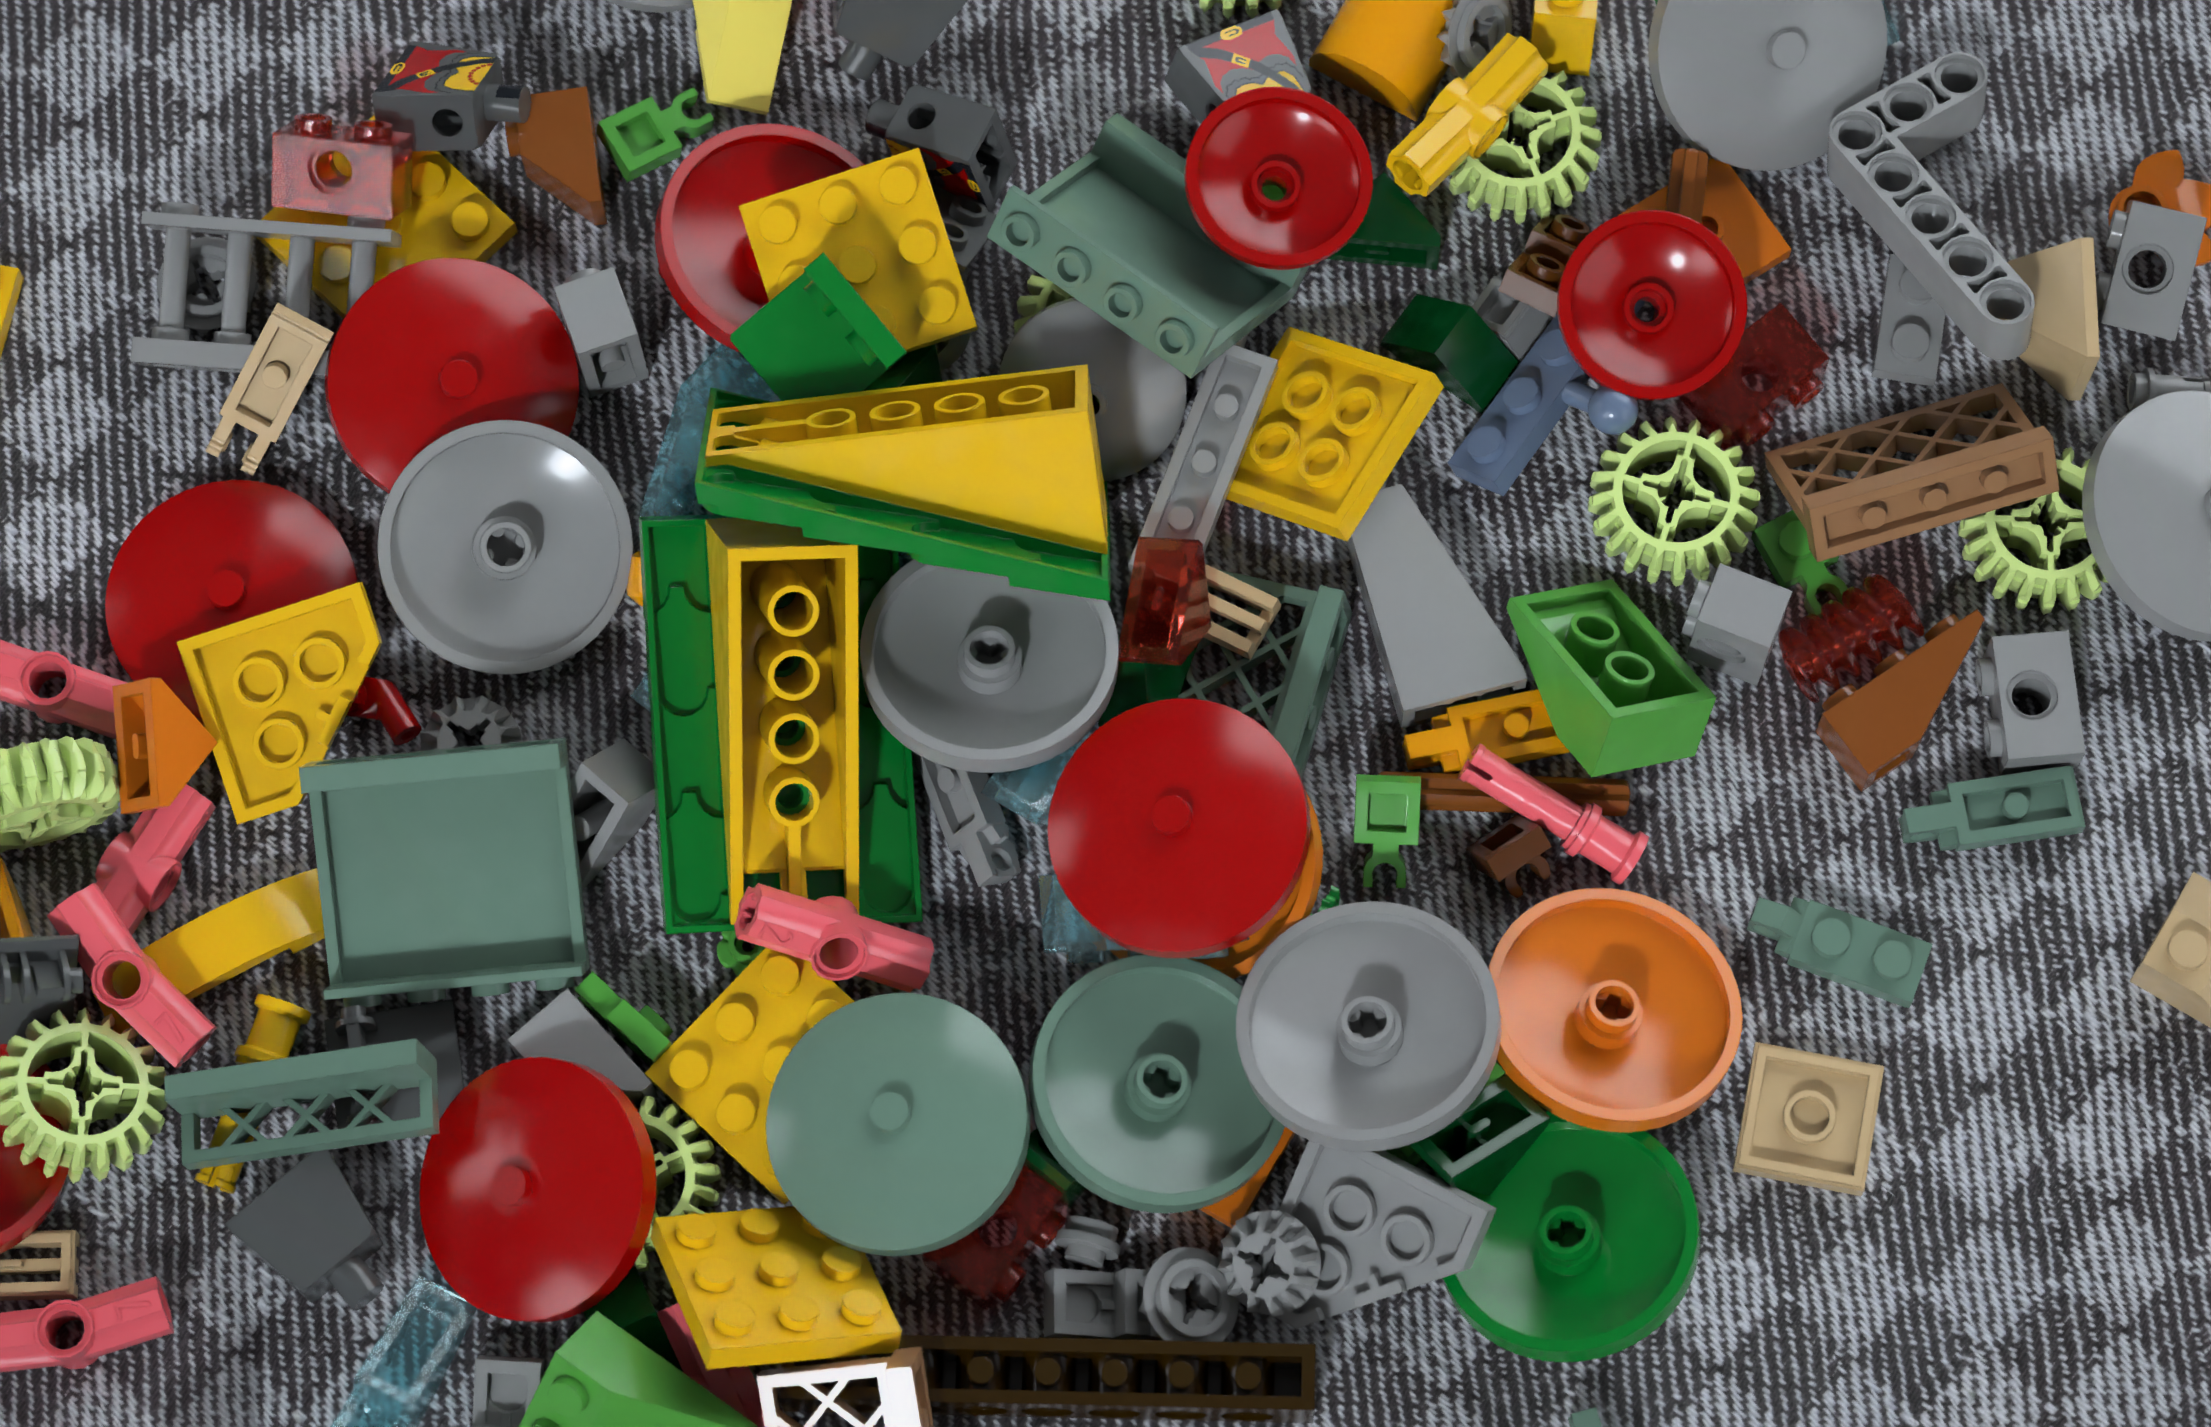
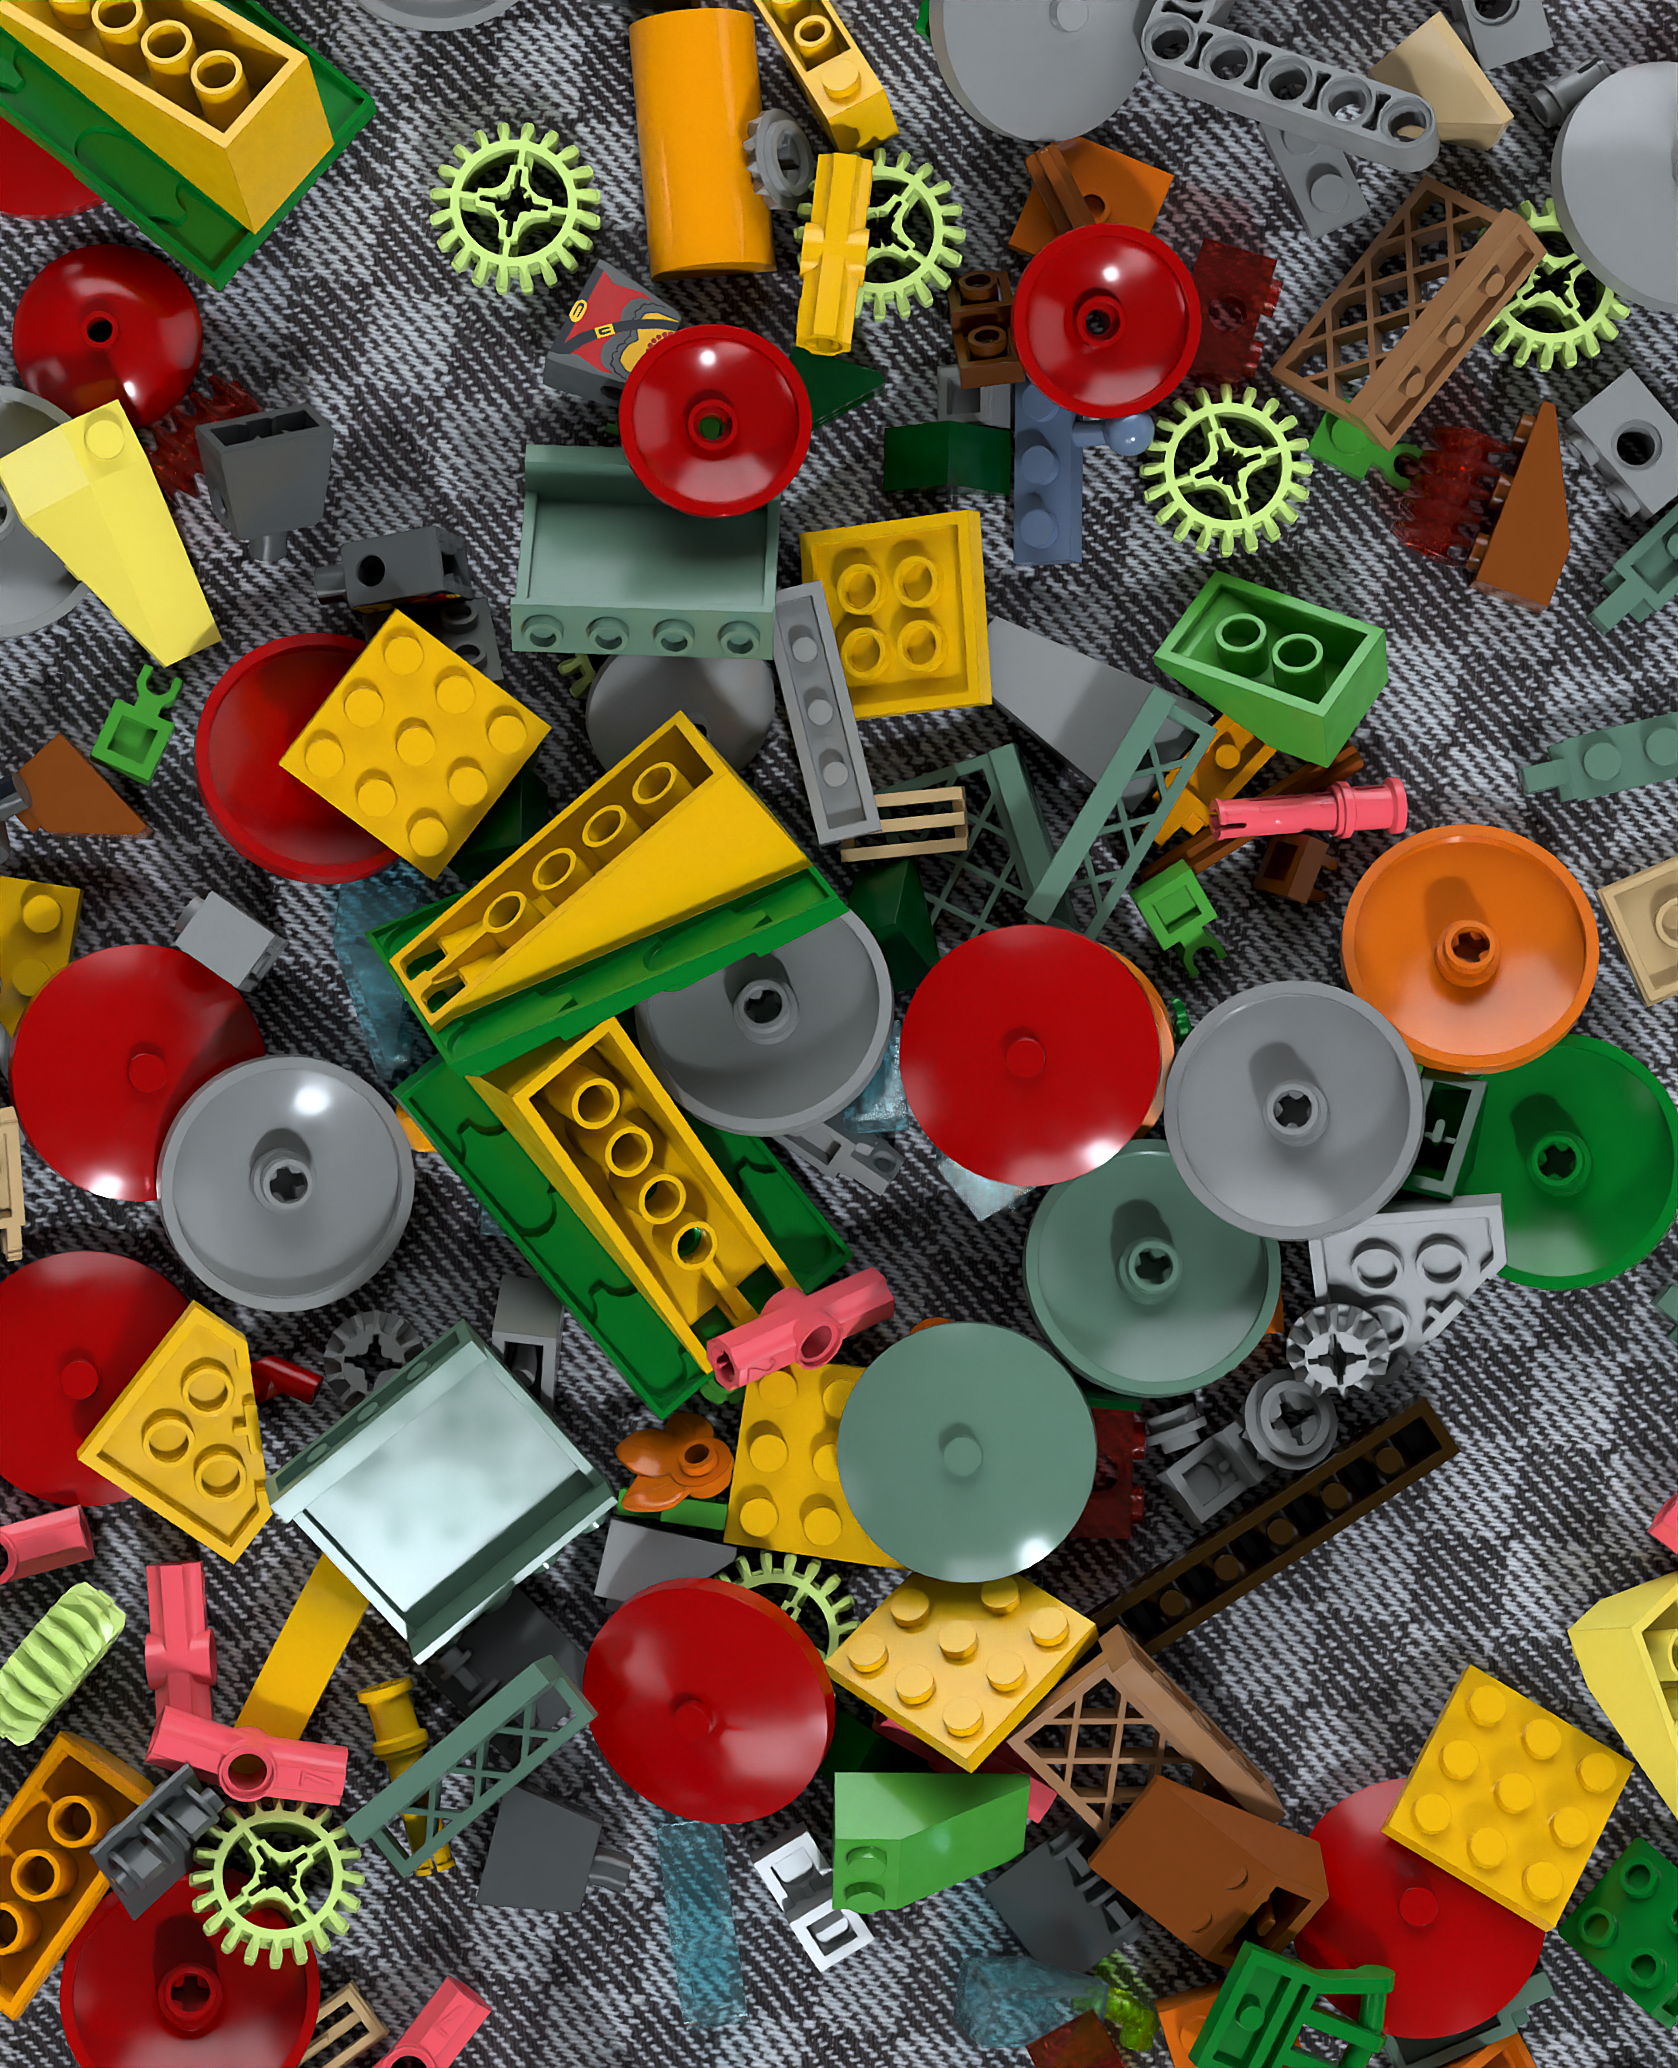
camera: 35 degrees left, 15 degrees up
(155, 744) = (127, 1557): orange slope -> none
(646, 978) = (674, 1463): none -> orange plate
(817, 338) = (434, 837): green bracket -> none
(1165, 602) = (878, 863): clear red slope -> none
(1387, 676) = (1102, 801): none -> sand green fence
(1735, 623) = (1354, 549): light grey brick -> none

